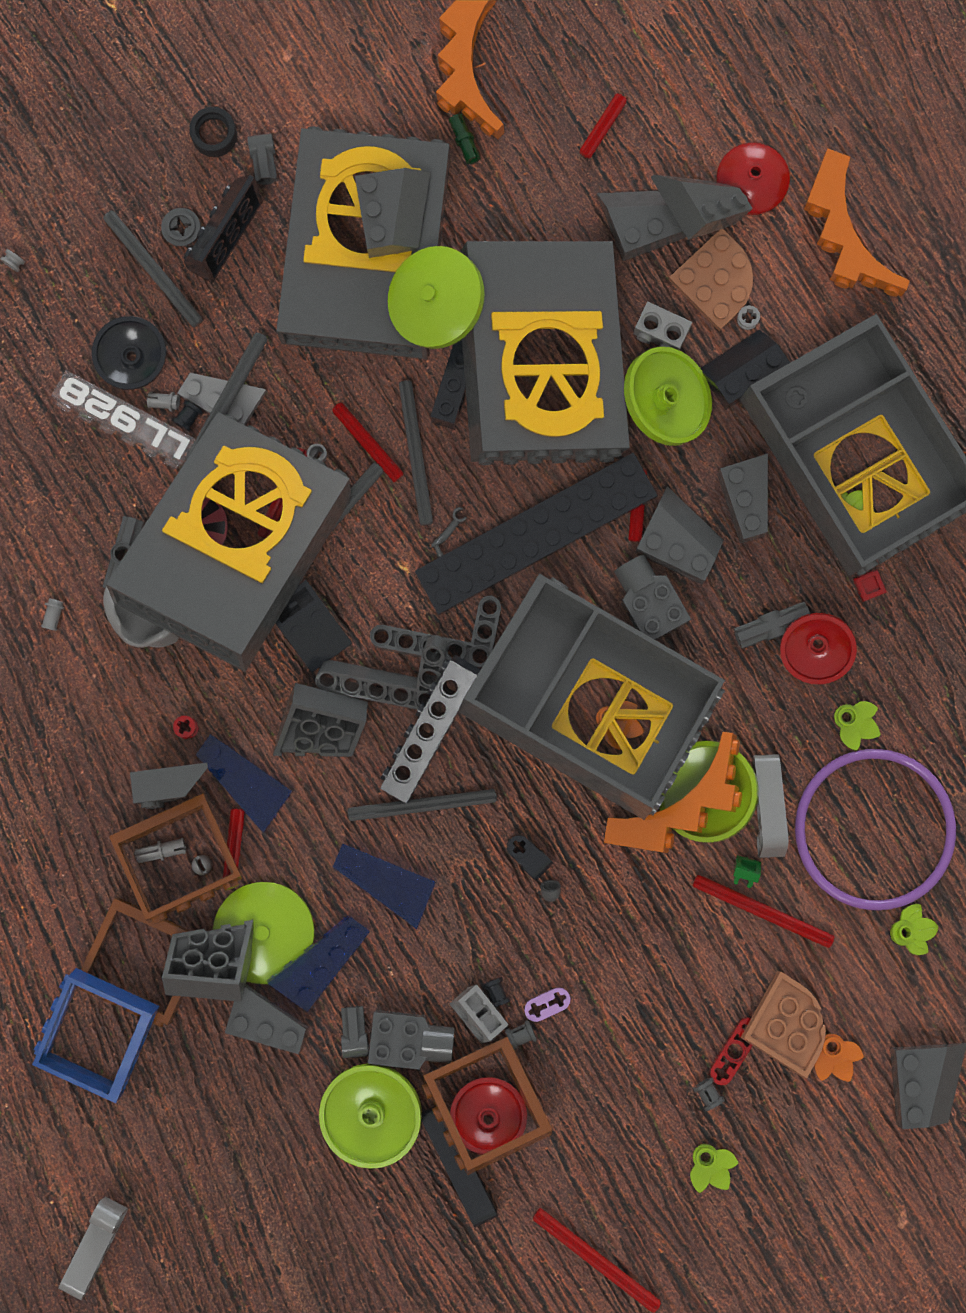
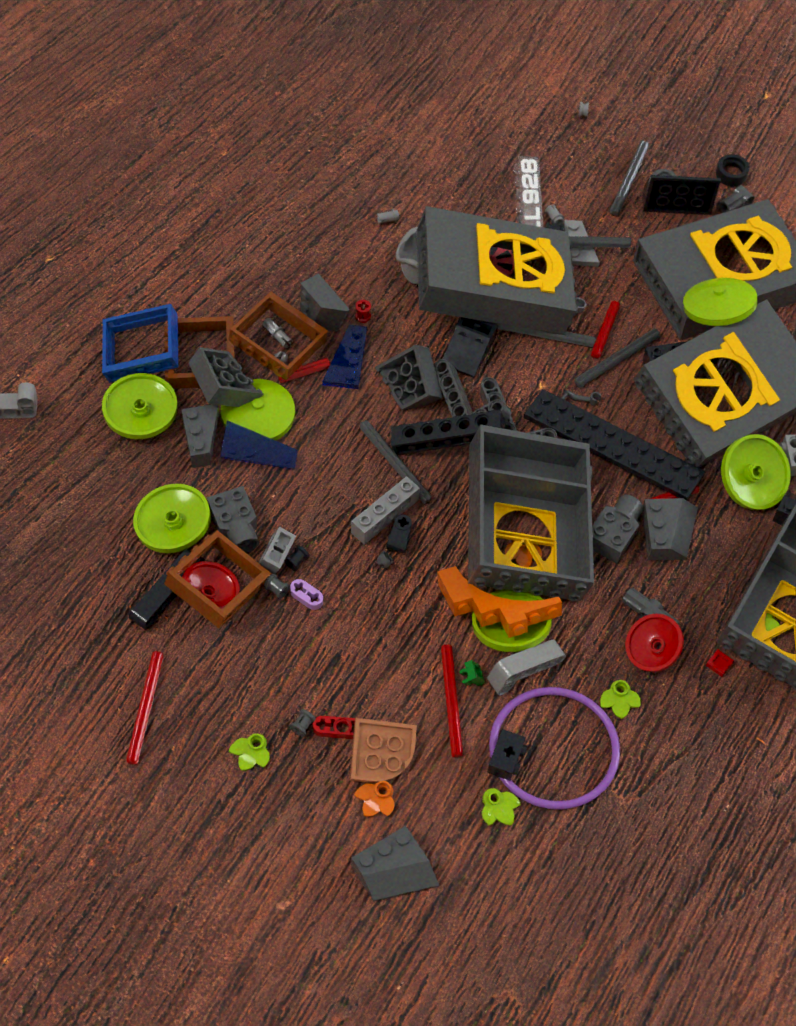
camera: 55 degrees right, 25 degrees down
(126, 337) = (571, 182): black dish -> none
(187, 1078) = (139, 406): none -> lime dish
(354, 1039) = (226, 483): dark grey piece -> none
(391, 885) = (332, 469): clear blue wing -> none
(392, 209) = (755, 258): dark grey wedge -> none
(487, 855) = (385, 510): none -> light grey brick
(747, 496) = (725, 553): dark grey wedge -> none
(871, 906) = (505, 766): none -> black brick

